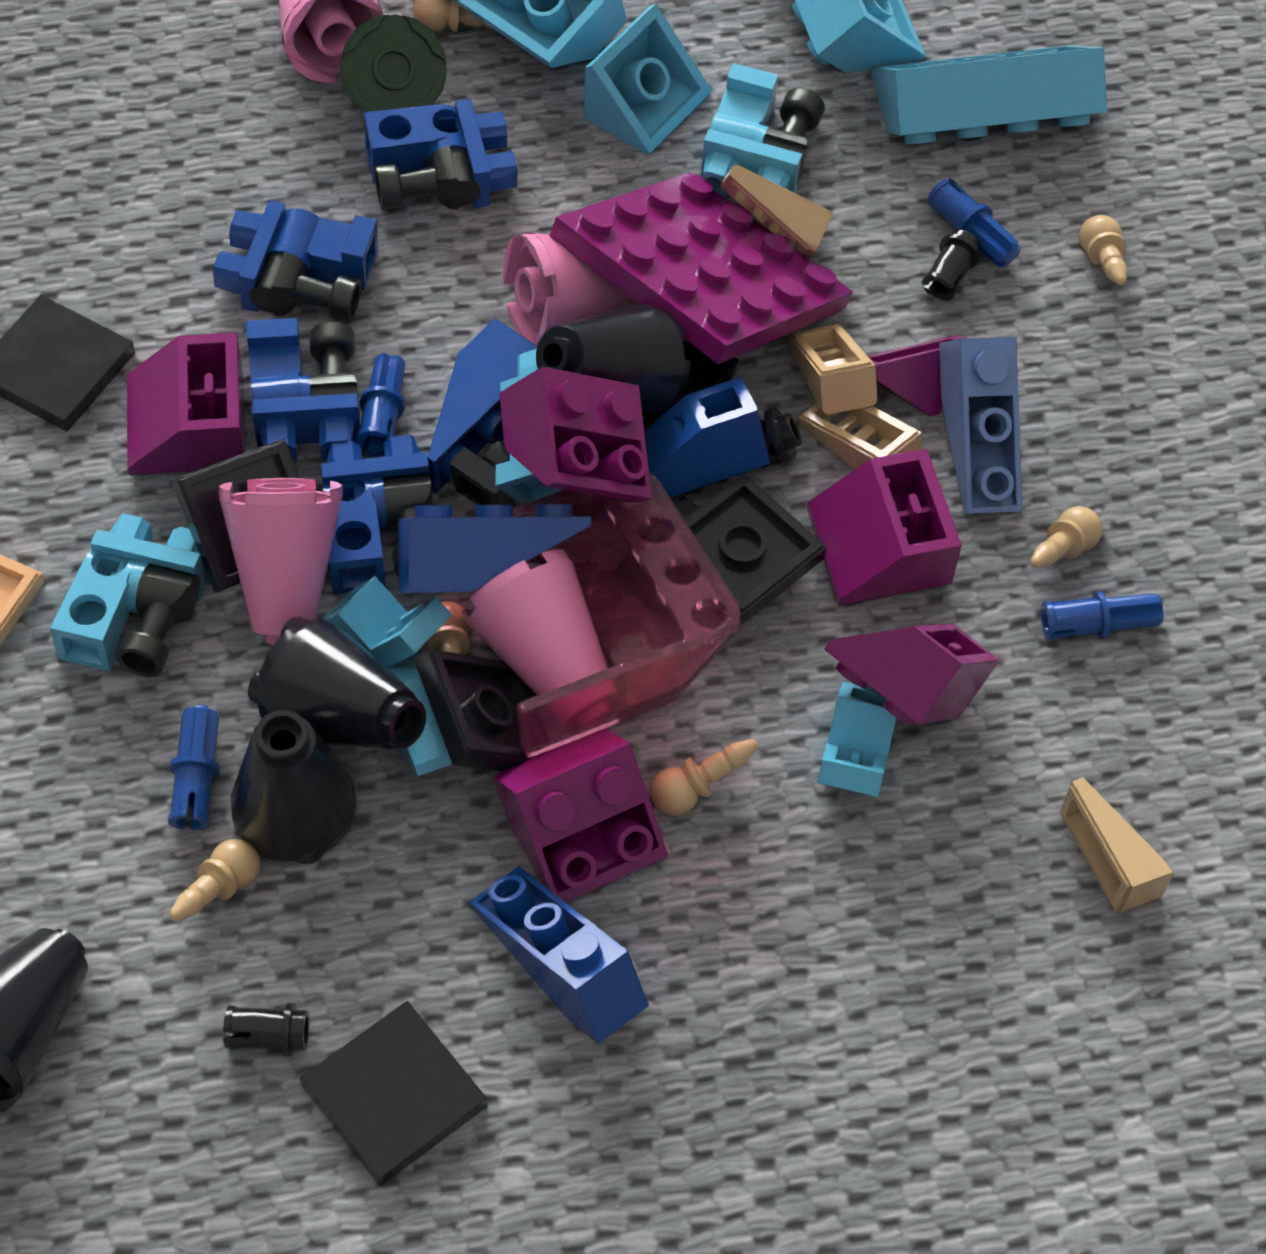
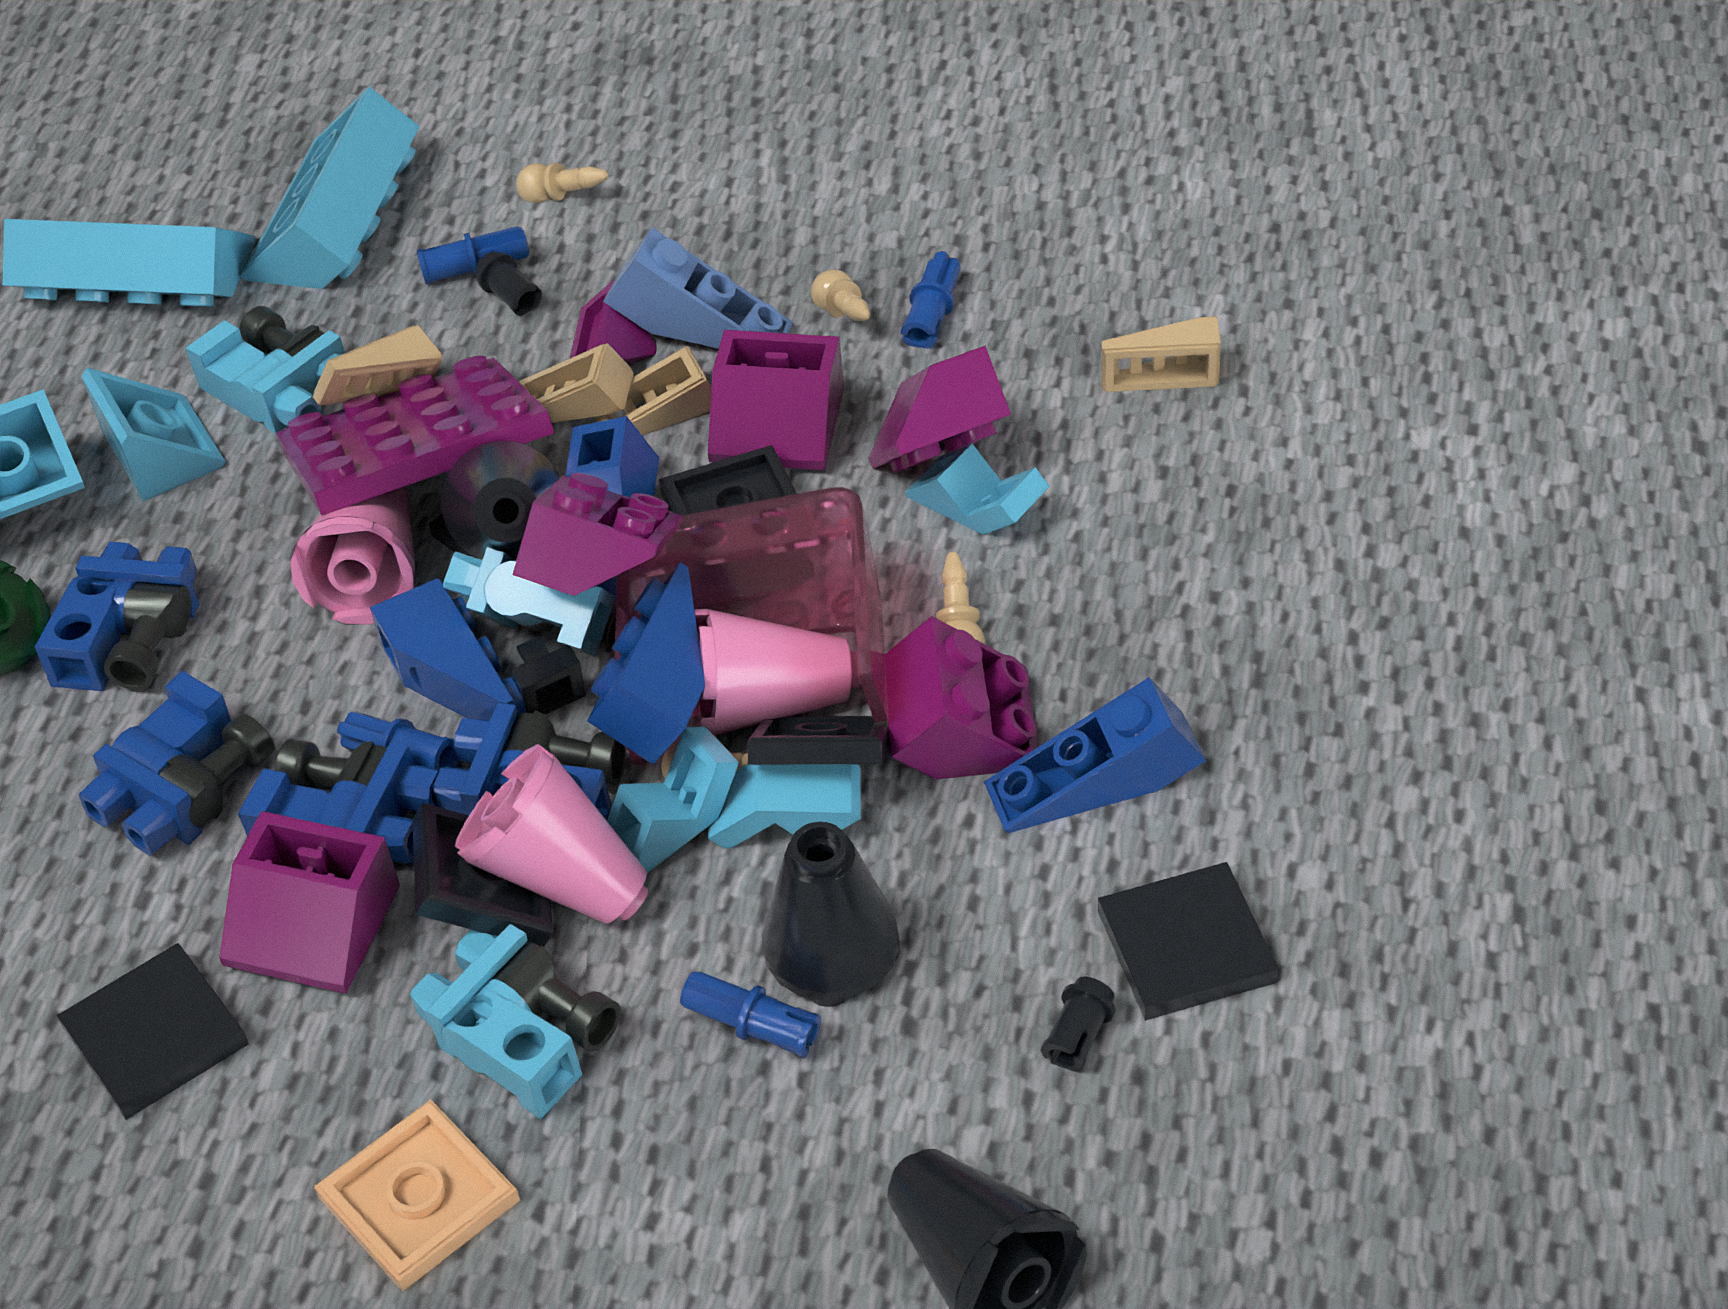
camera: 60 degrees left, 10 degrees down
(230, 867) = (879, 1018): tan bar -> none
(336, 688) = (744, 830): black cone -> none

